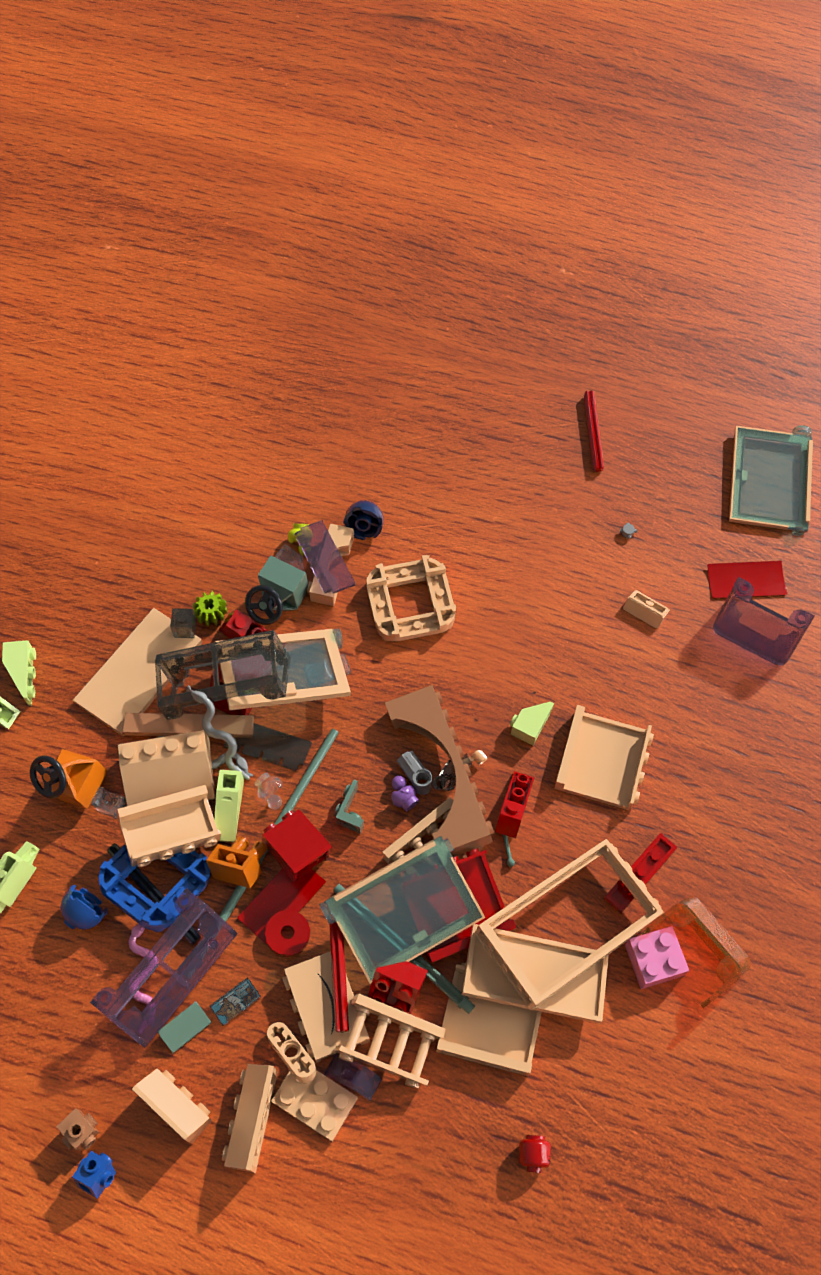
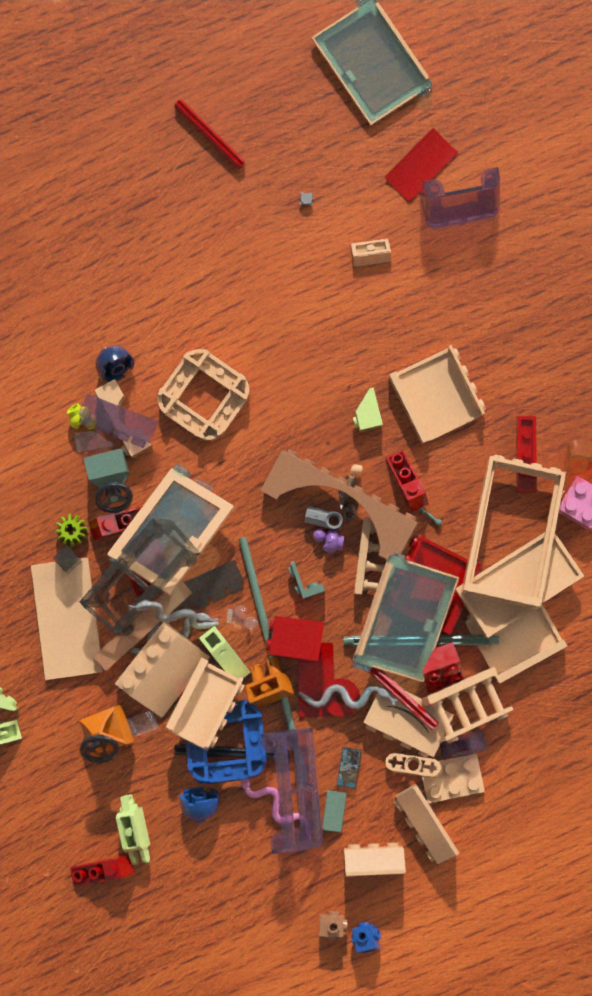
camera: 40 degrees left, 20 degrees up
(325, 957) = (383, 693): none -> light grey animal

